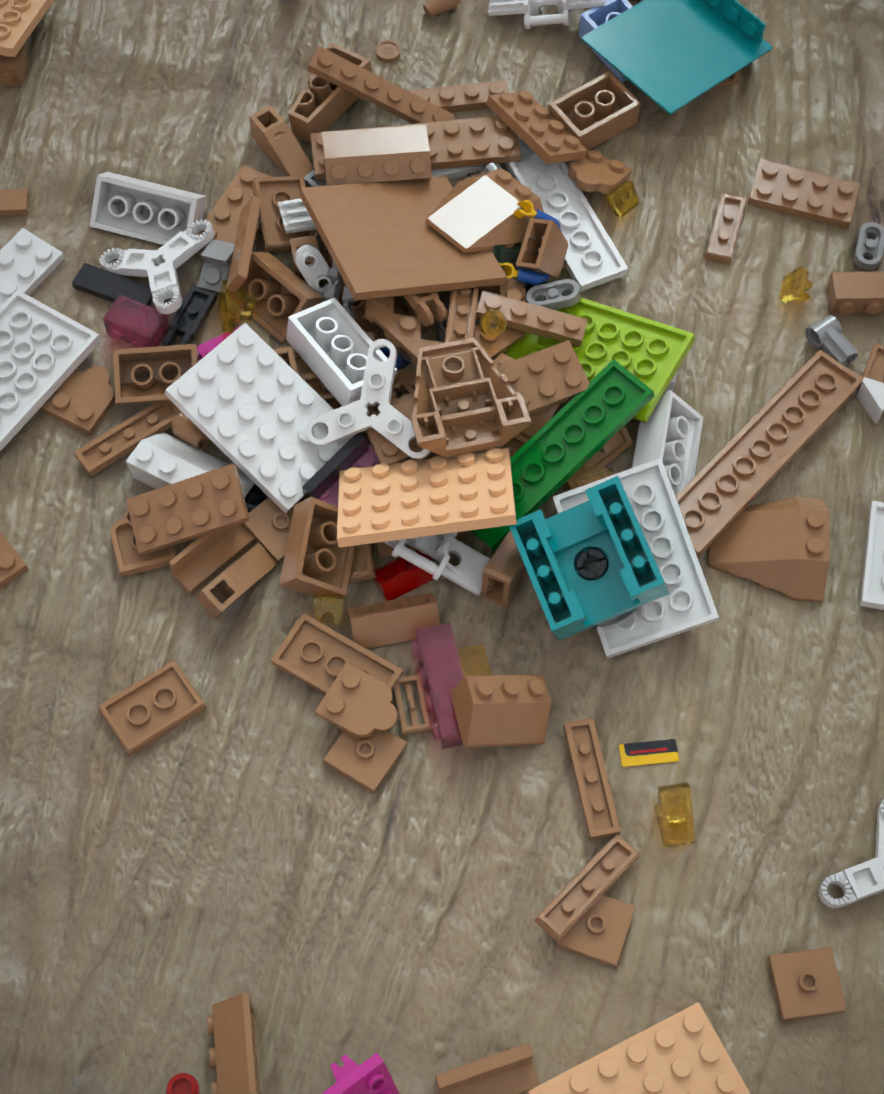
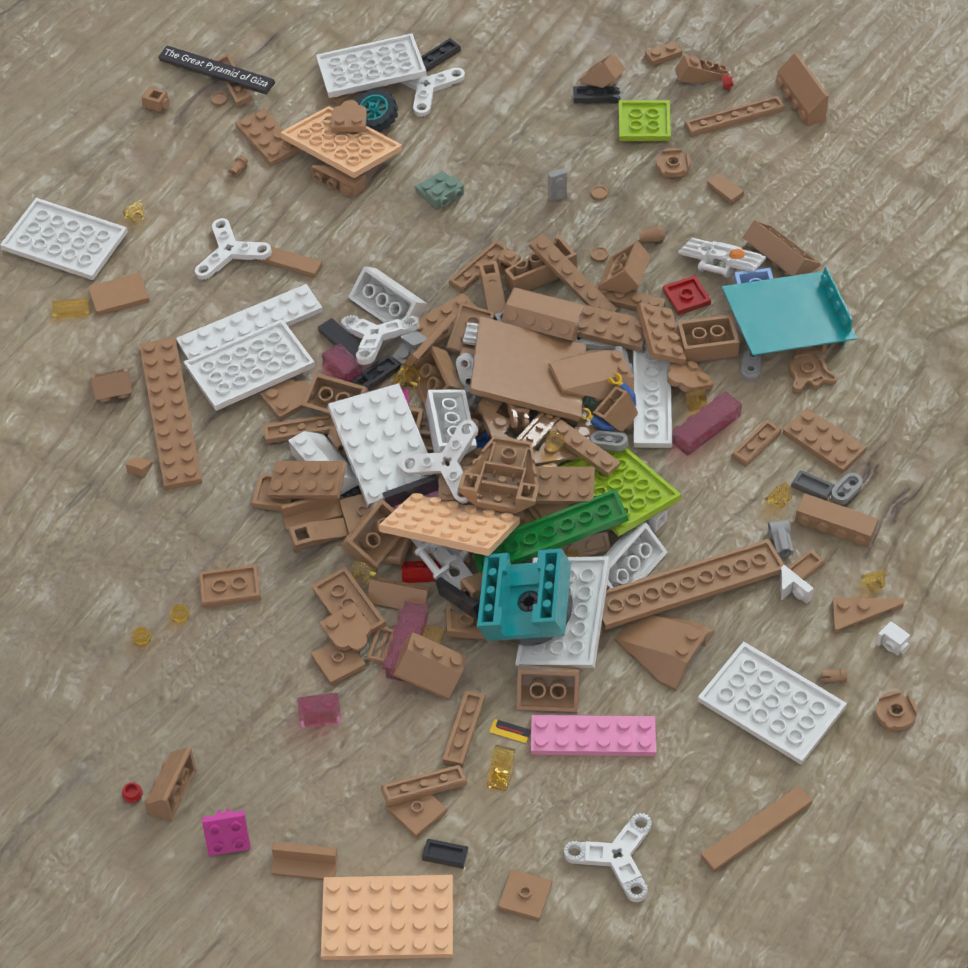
camera: 30 degrees right, 10 degrees down
(66, 839) = (141, 636): none -> clear yellow plate
(103, 781) = (179, 613): none -> clear yellow plate
(133, 35) = (440, 190): none -> sand green plate
(238, 130) = (470, 273): none -> medium nougat tile
(283, 96) = (506, 259): none -> medium nougat brick
(384, 840) = (319, 710): none -> clear pink brick
(438, 59) = (625, 269): none -> medium nougat slope
(484, 595) = (457, 597): none -> black tile
(510, 628) = (461, 625): none -> medium nougat wing
(528, 66) = (686, 295): none -> red tile
(654, 225) = (706, 423): none -> clear pink brick
(657, 124) = (750, 363): none -> light grey plate
(667, 671) = (547, 688): none -> medium nougat slope
(668, 973) = (445, 853): none -> black tile
(733, 111) = (809, 370): none -> medium nougat tile
(759, 712) = (593, 735): none -> bright pink plate
(825, 257) = (812, 485): none -> dark grey tile

